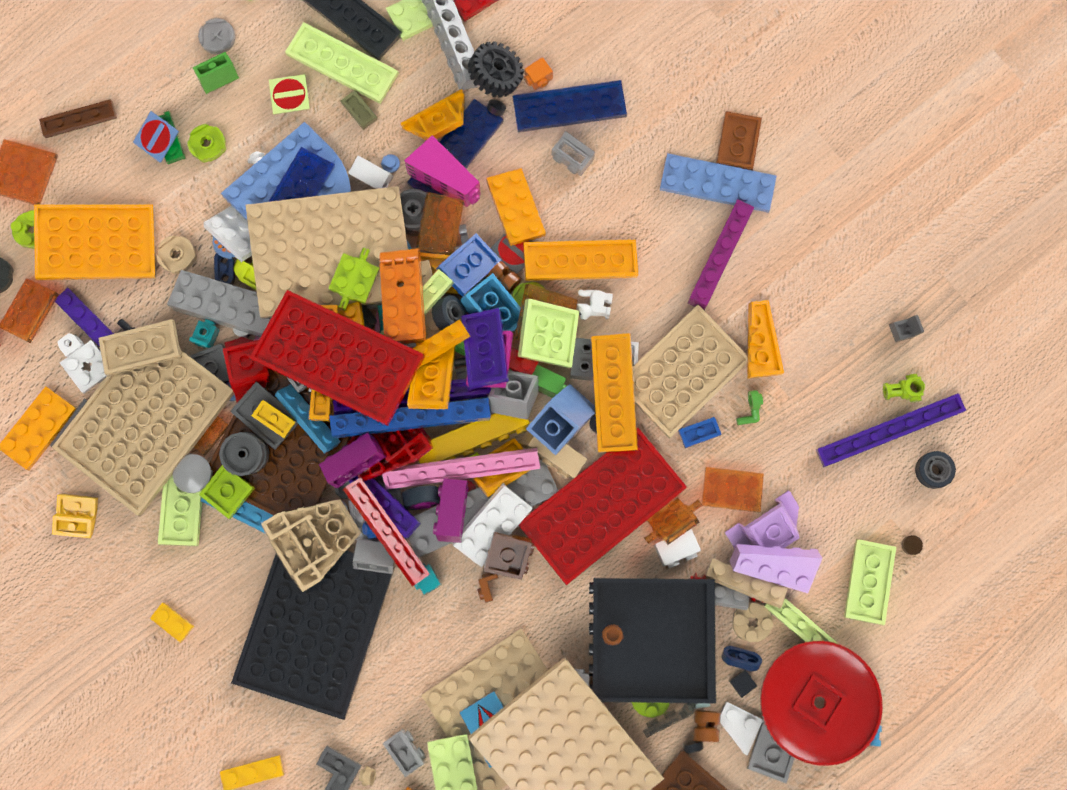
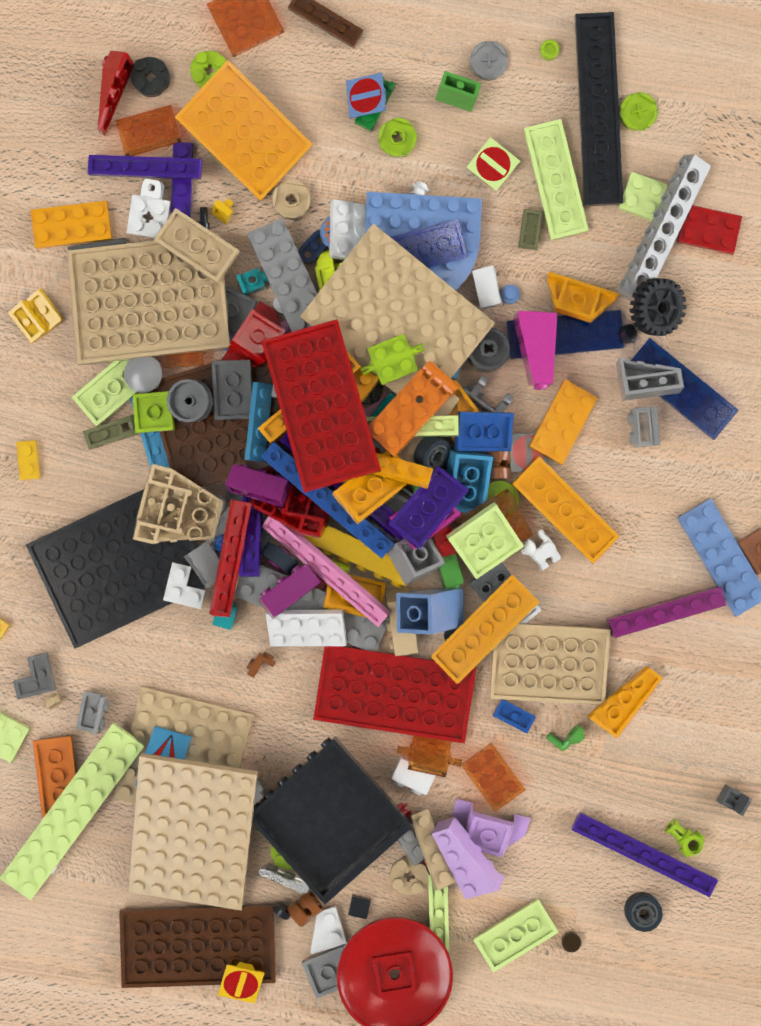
camera: 45 degrees right, 10 degrees up
(49, 335) = (145, 167): none -> dark purple plate
(135, 309) = (223, 211): none -> yellow tile
(211, 539) = (109, 432): none -> olive plate
(273, 418) = (235, 399): yellow plate -> none
(375, 596) = (177, 588): none -> white plate
(440, 224) = (494, 381): clear orange plate -> none
(508, 555) = (295, 660): plate -> none
(538, 74) = (684, 341): orange brick -> none
(540, 120) = (647, 380): none -> light grey wedge
(612, 634) = (305, 789): dark orange plate -> none
(741, 658) = (375, 891): dark blue plate -> none

